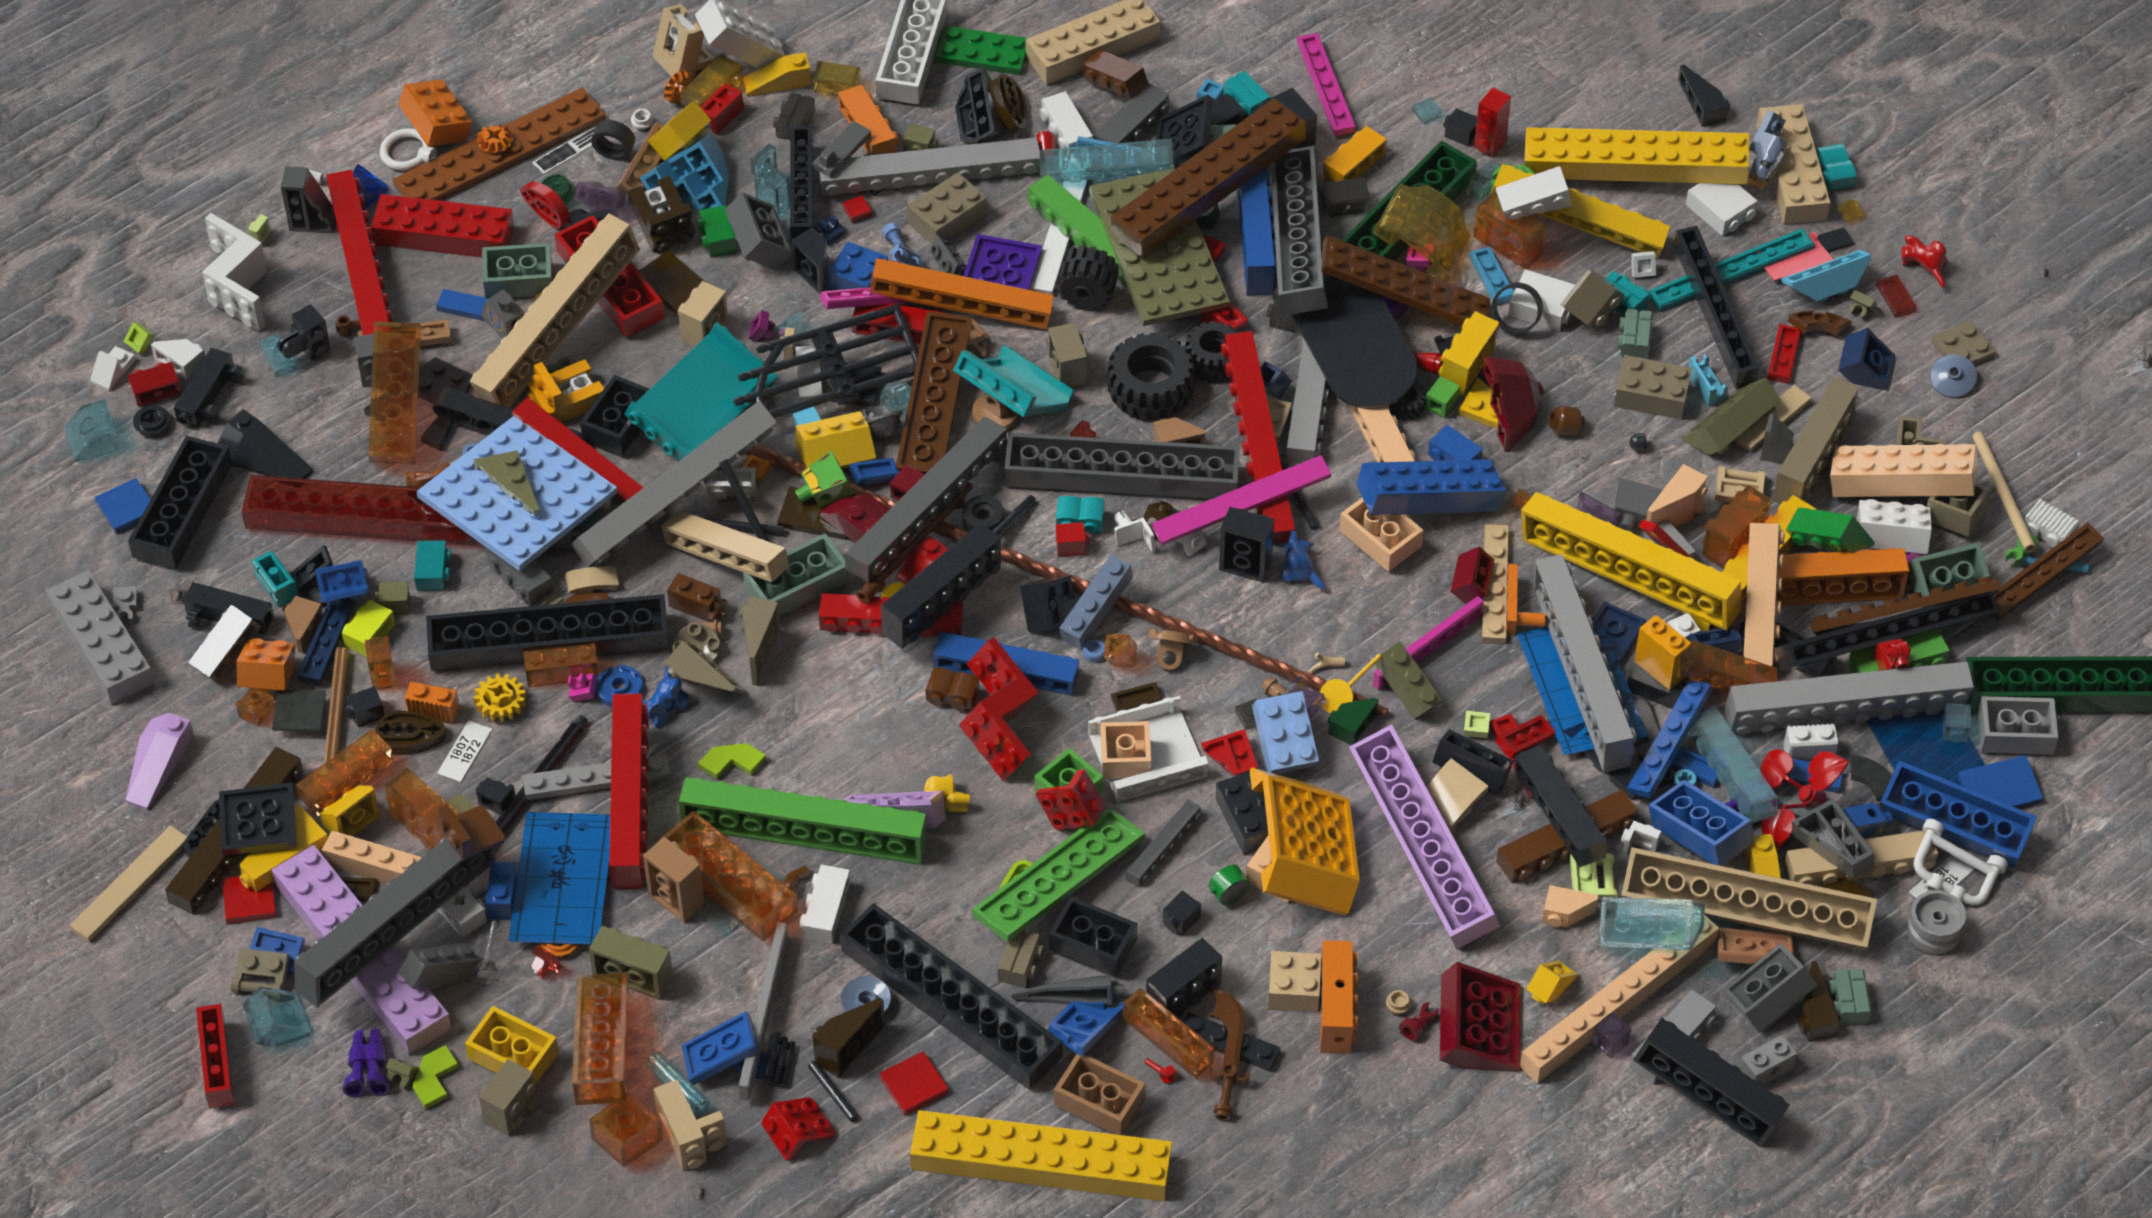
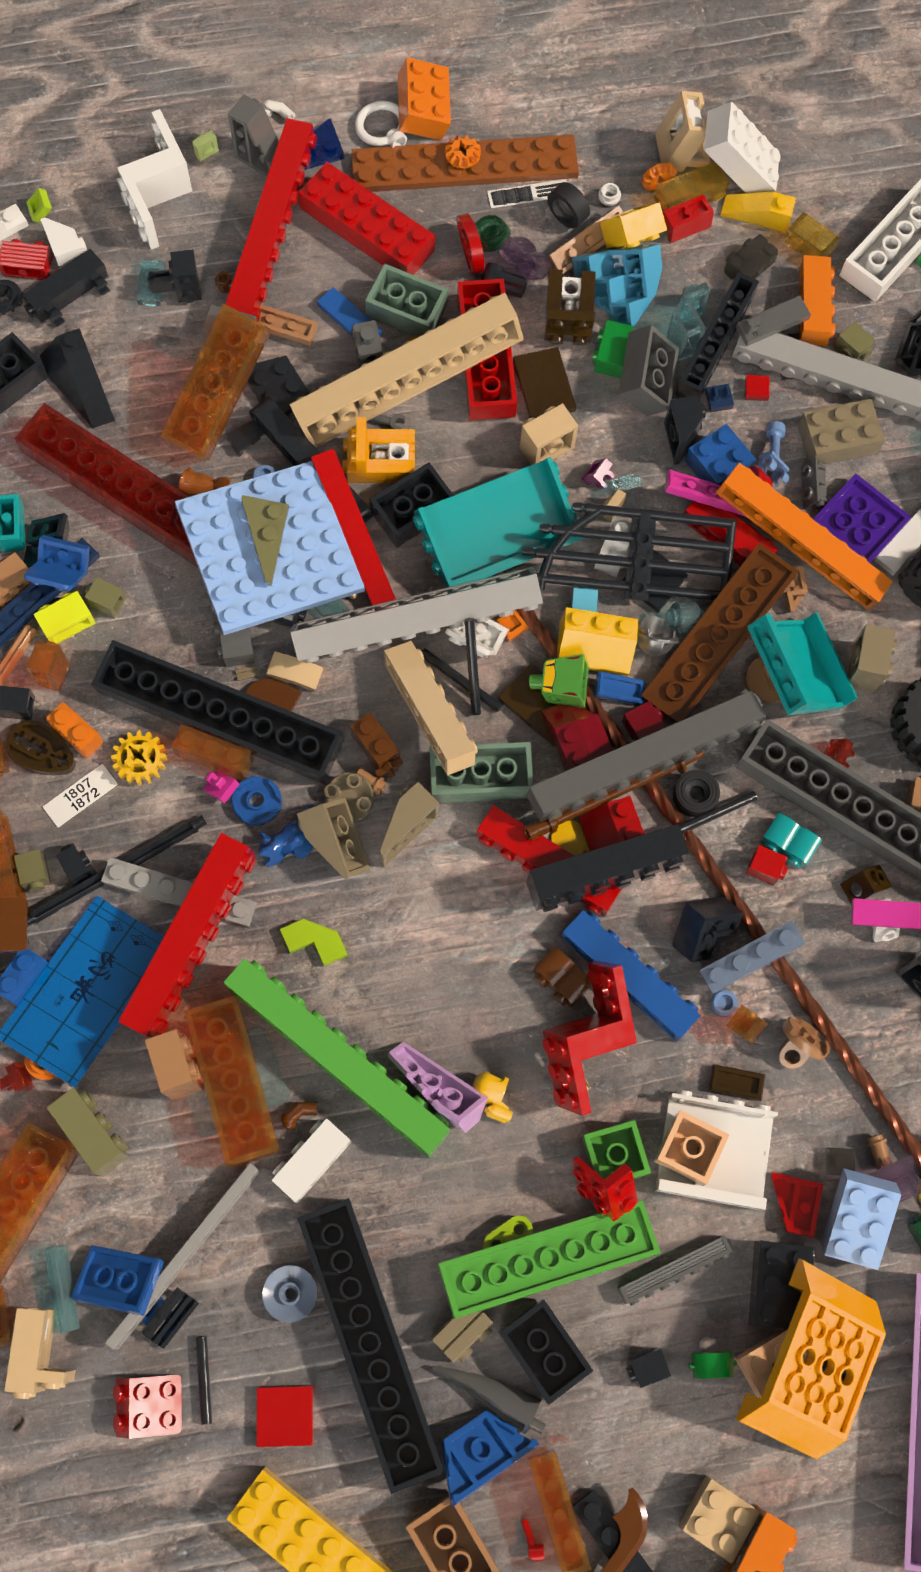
camera: 25 degrees right, 20 degrees up
(431, 565) = (158, 579): teal brick -> none
(847, 1036) = (232, 1339): dark brown slope -> none
(1132, 530) = (831, 886): white bracket -> none
(1186, 978) = (606, 1463): black brick -> none

